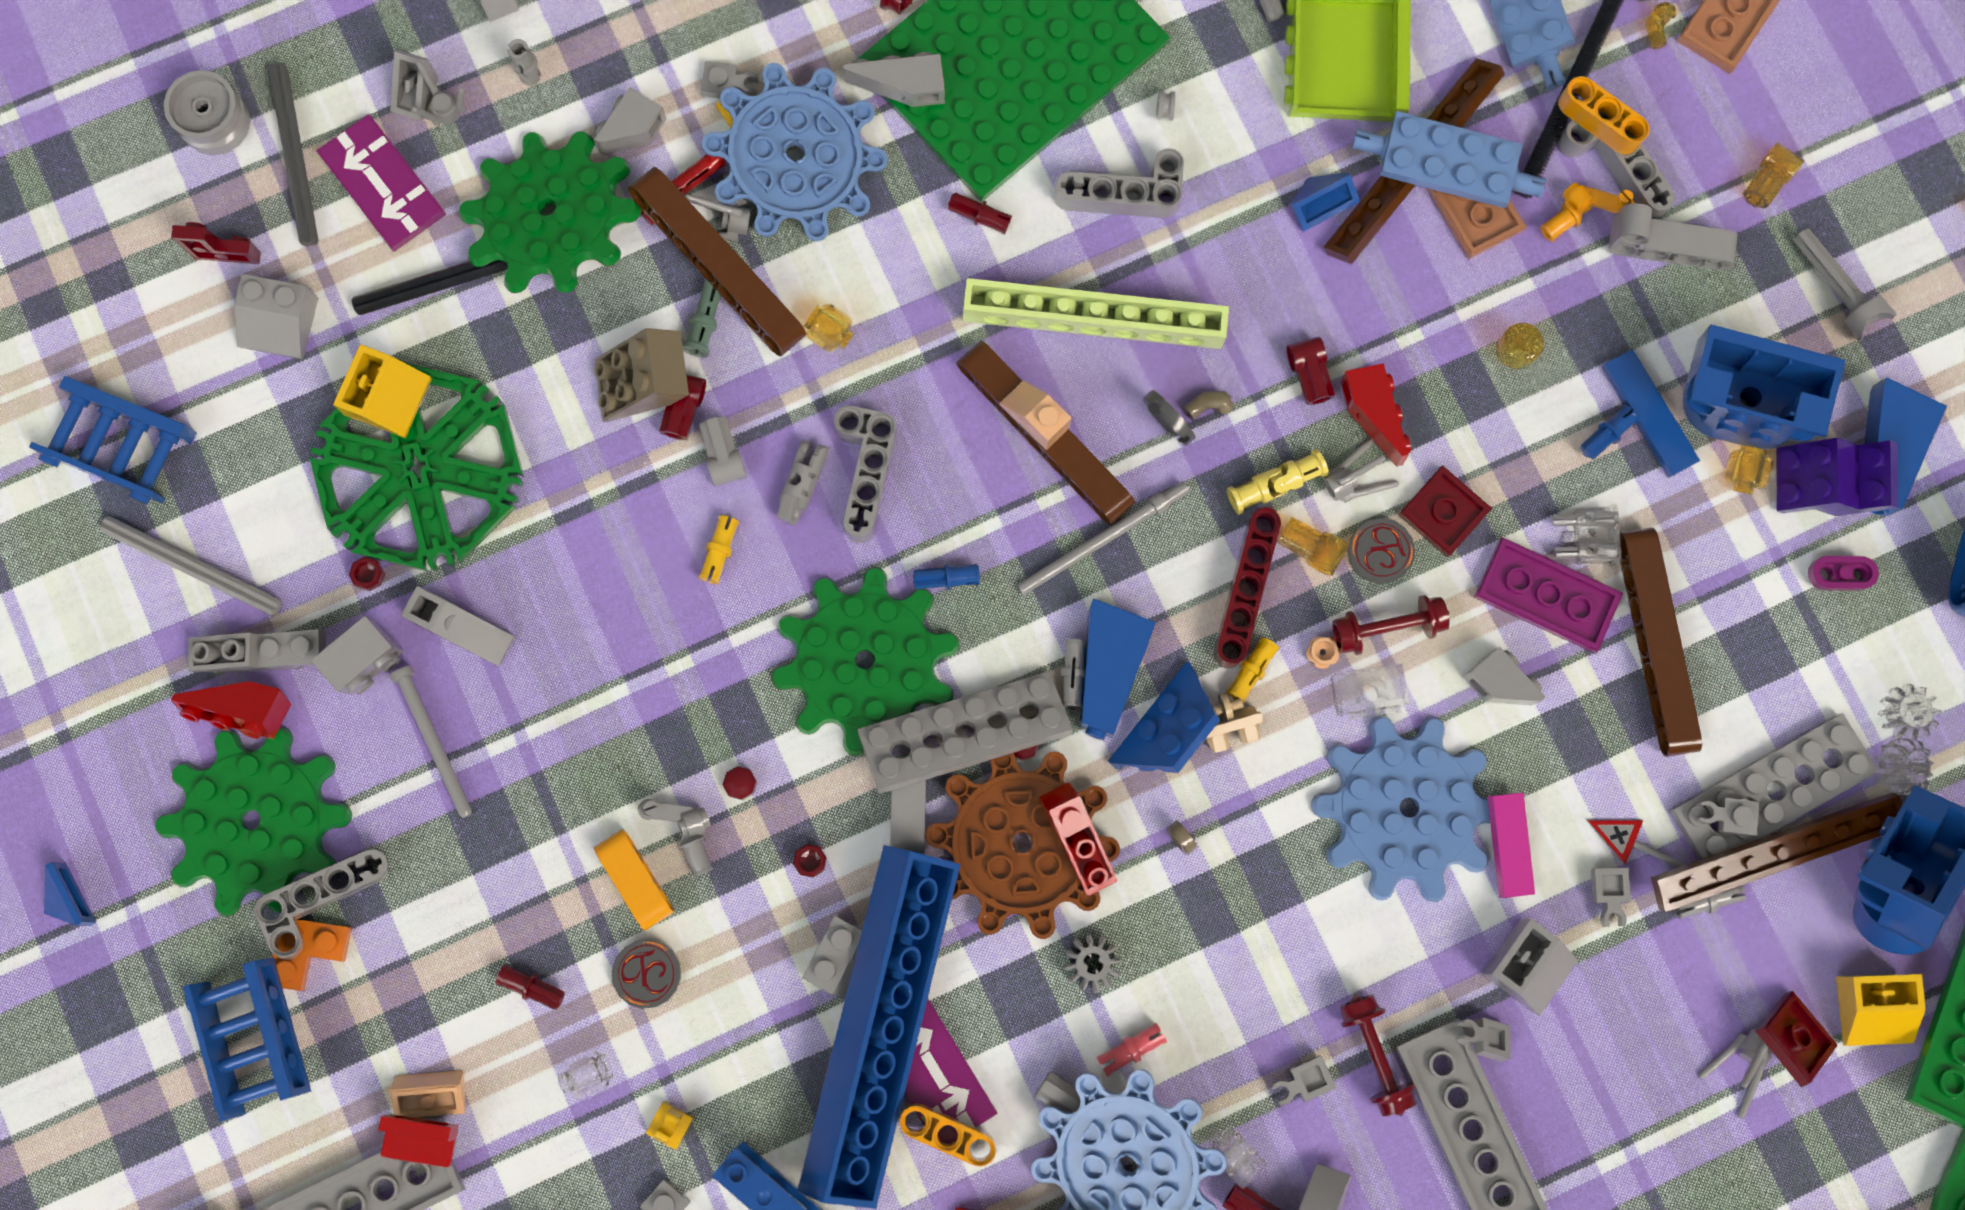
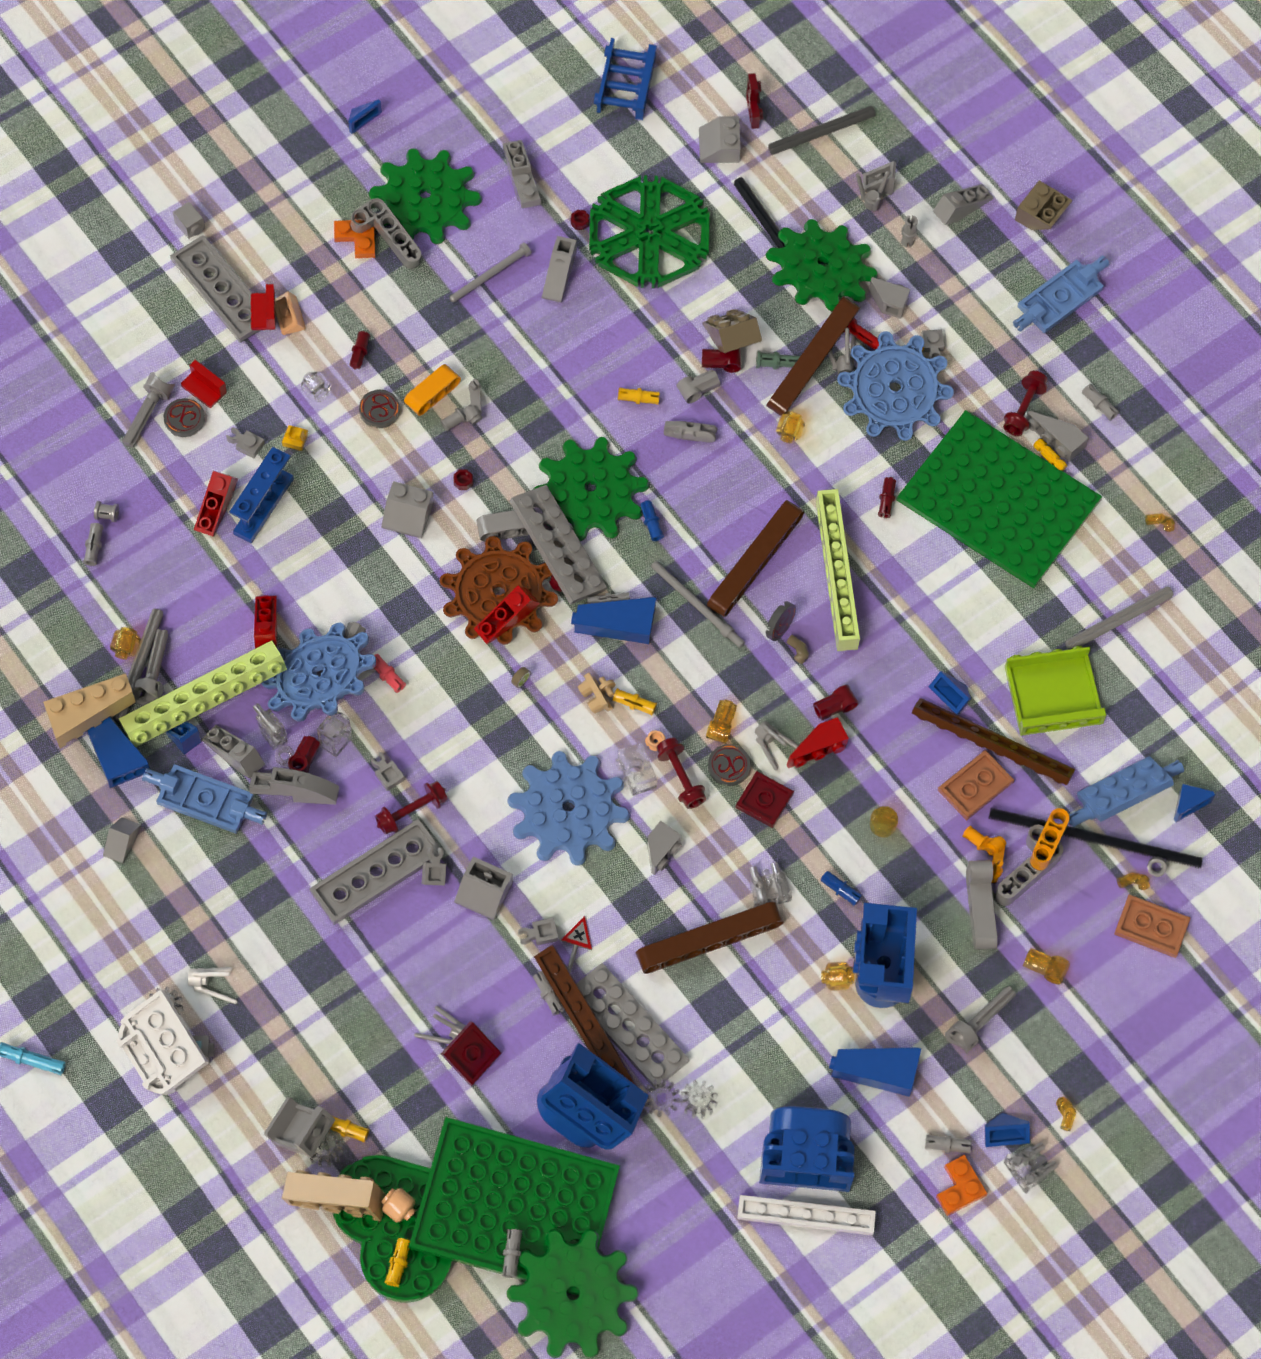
camera: 80 degrees right, 15 degrees down
(190, 565) = (563, 133): light grey axle -> none
(207, 112) = (832, 79): light grey wheel -> none
(242, 706) = (488, 173): red slope -> none
(277, 1033) = (308, 228): blue fence -> none
(357, 657) = (528, 221): light grey slope -> none
(381, 182) = (817, 178): magenta tile -> none
(382, 391) = (686, 199): yellow slope -> none
(739, 783) = (501, 435): dark red tile -> none
(865, 476) = (703, 462): light grey beam -> none
(878, 1029) = (373, 526): blue brick -> none
(906, 80) = (958, 439): light grey slope -> none
(944, 1079) = (352, 569): magenta tile -> none
(961, 1147) = (317, 586): light orange beam -> none
(1037, 414) = (761, 544): light nougat slope -> none
(1081, 968) = (441, 637): light grey gear -> none
(1117, 187) = (923, 571): light grey beam -> none
(1165, 105) = (987, 589): light grey bush -> none
(1170, 727) = (588, 658): blue wing -> none
(1257, 575) = (675, 682): dark red beam -> none
(1280, 479) = (758, 696): light yellow piece -> none
(1450, 160) = (994, 756): medium blue plate -> none
(1511, 845) = (557, 867): dark pink tile -> none
(1548, 595) = (724, 869): magenta tile -> none
(1655, 417) = (850, 922): blue tile -> none
(1733, 815) = (604, 994): light grey plate -> none
(1837, 477) = (844, 1025): dark purple bracket -> none
(1841, 575) = (784, 1047): magenta plate -> none
(1880, 1008) = (500, 1102): yellow slope -> none

